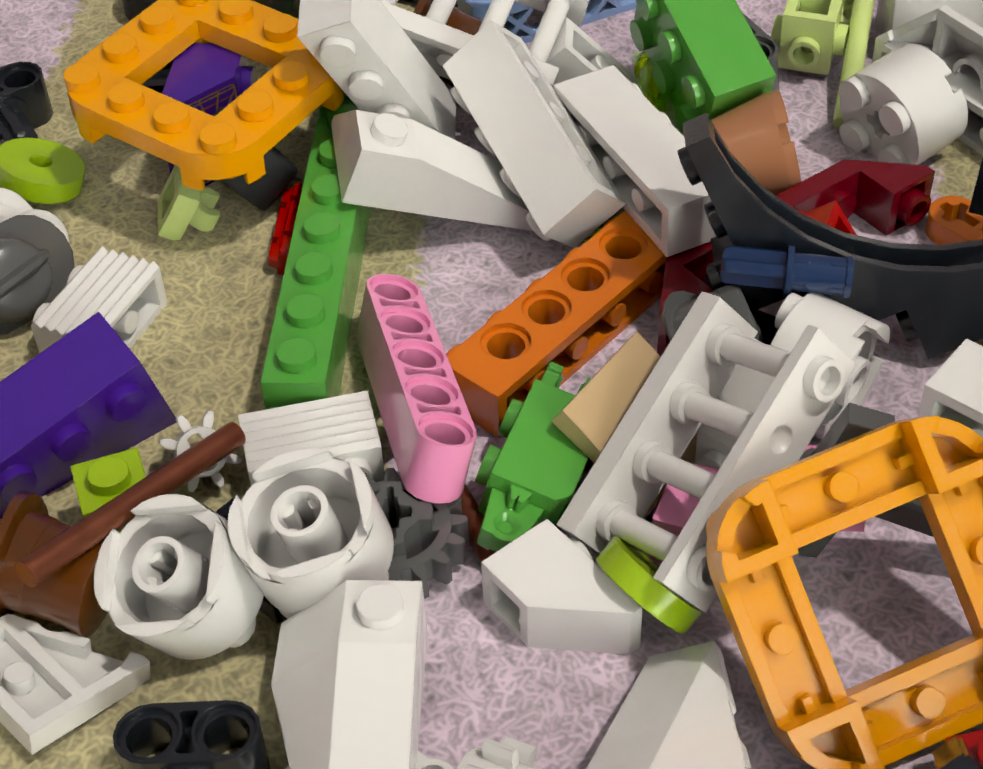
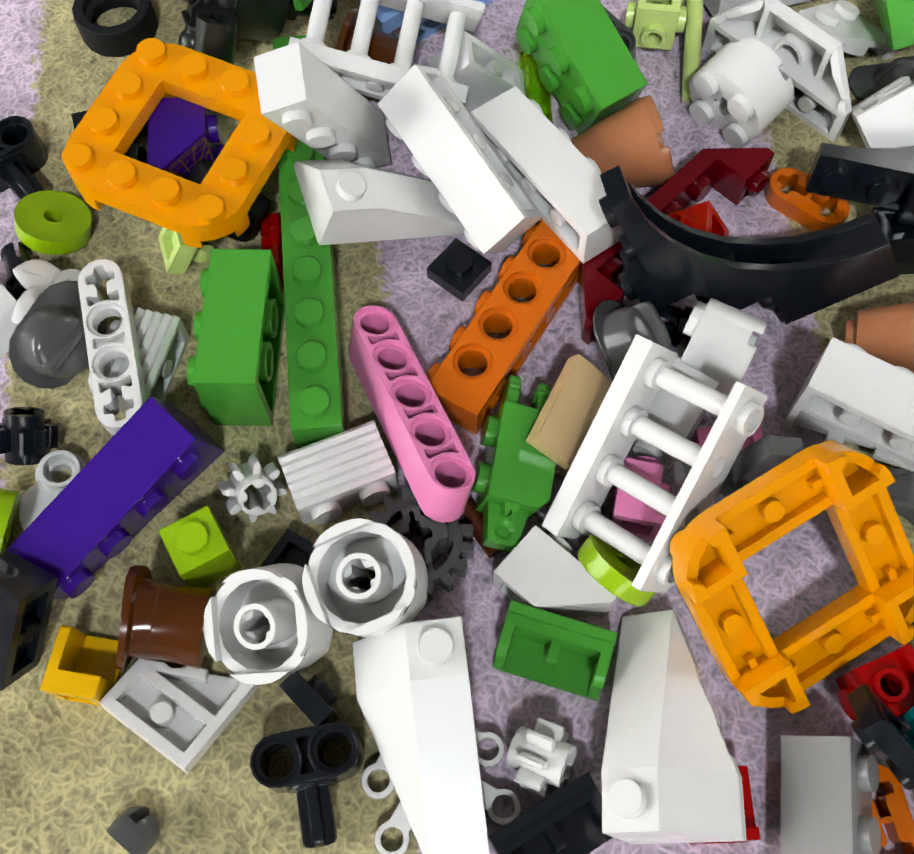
camera: 10 degrees left, 20 degrees up
(70, 278) = (107, 347): none -> white beam
(116, 512) = (217, 569): copper bar -> none
(206, 677) = (311, 698): none -> black plate
(222, 292) = (238, 337): none -> bright green brick
(514, 263) = (459, 269): none -> black plate
(547, 673) = (554, 650): none -> bright green hinge
(787, 270) = (690, 287): dark blue axle -> none

